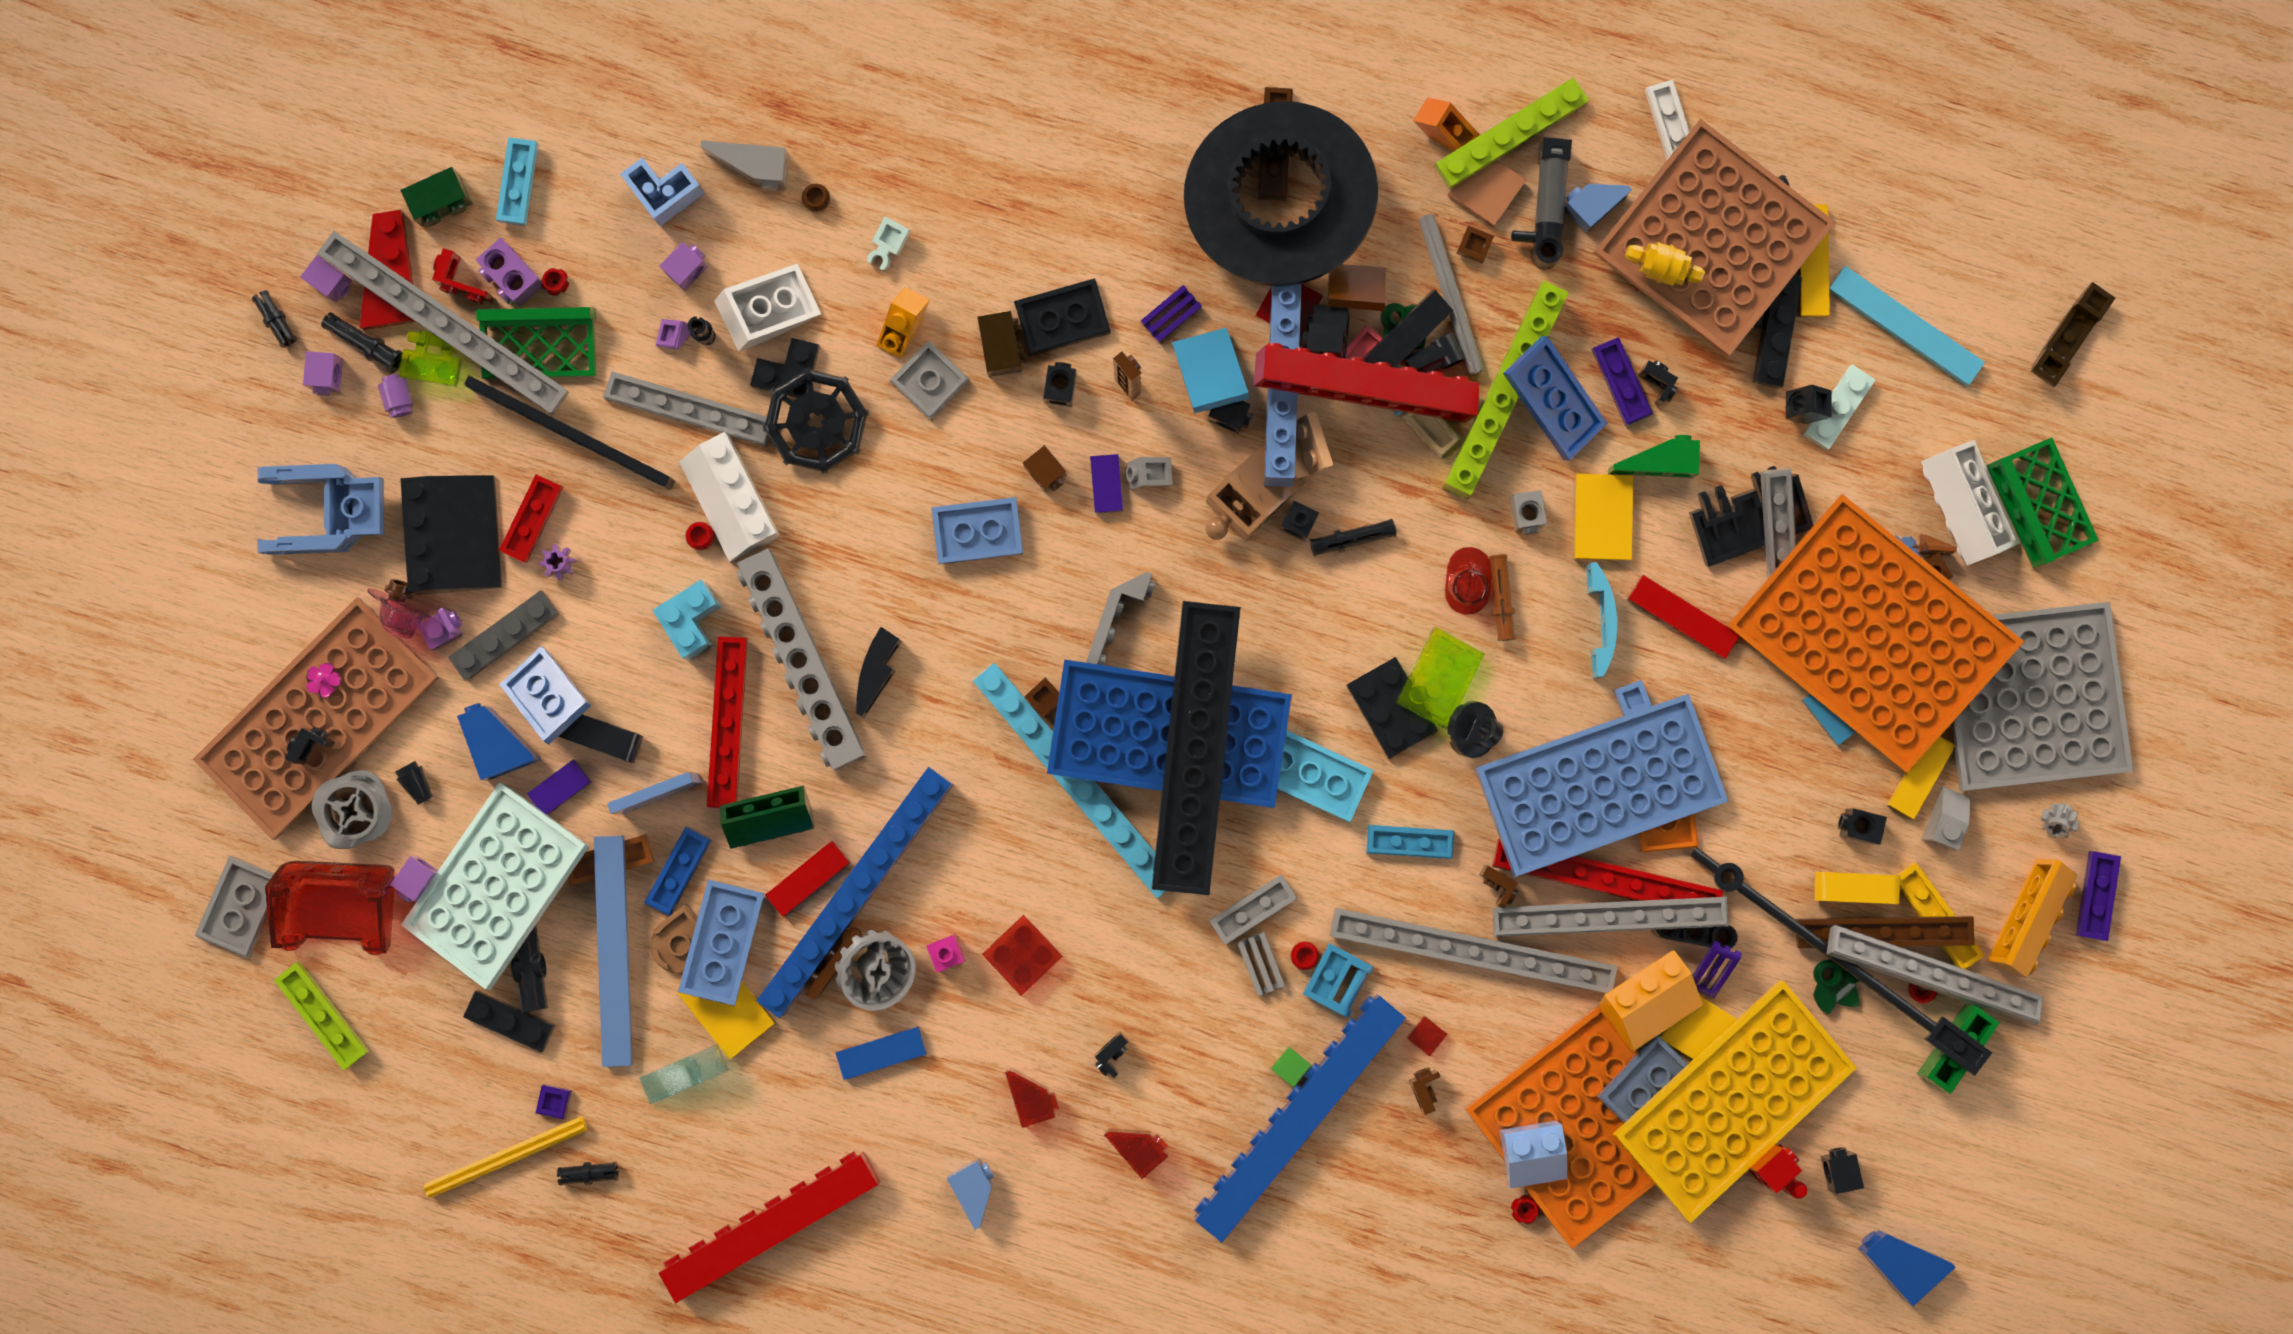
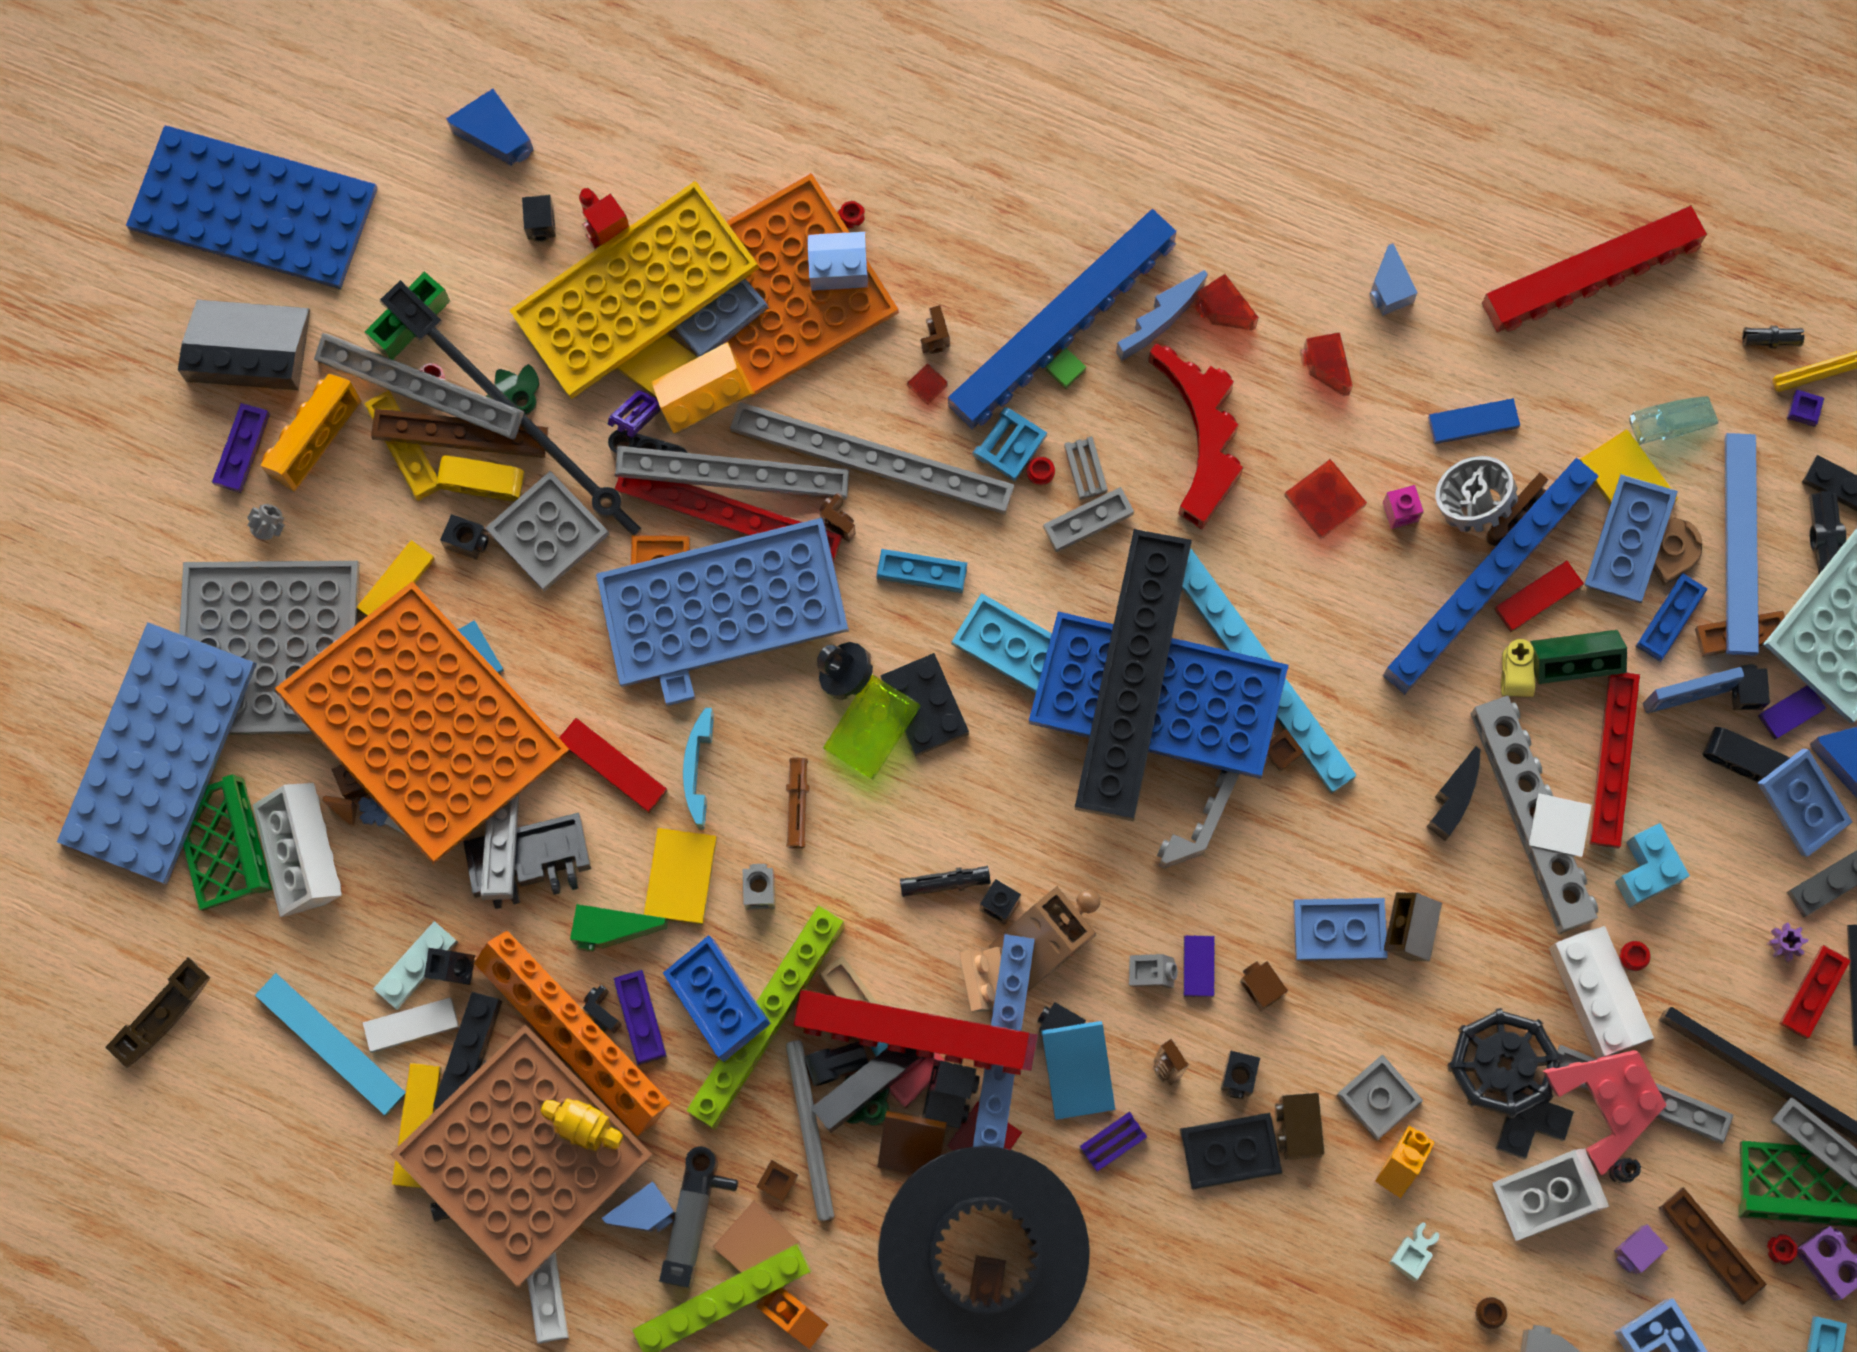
camera: 170 degrees left, 10 degrees down
(595, 805) = (1752, 690): none -> black brick
(618, 279) = (1712, 1246): none -> reddish brown tile
(672, 334) = (1654, 1177): medium lavender slope -> none
(705, 399) = (1623, 1095): none -> coral wing
(776, 647) = (1560, 825): none -> white sticker
(824, 793) = (1518, 675): none -> light yellow piece
(909, 537) = (1412, 926): none -> dark brown brick
(1114, 1049) = (1243, 399): black bracket -> none
(1150, 1049) = (1214, 431): none -> red arch
(1193, 1140) = (1167, 310): none -> medium blue slope
(1468, 580) = (829, 826): clear red piece -> none
(1685, 356) = (572, 1033): none -> orange brick
(1782, 842) = (547, 531): none -> light grey plate
(1834, 351) = (410, 1025): none -> white tile
(1948, 820) = (376, 534): light grey slope -> none
(2115, 1006) = (244, 345): none -> slope
(2122, 580) = (156, 753): none -> medium blue plate
(2135, 1155) = (252, 207): none -> blue plate

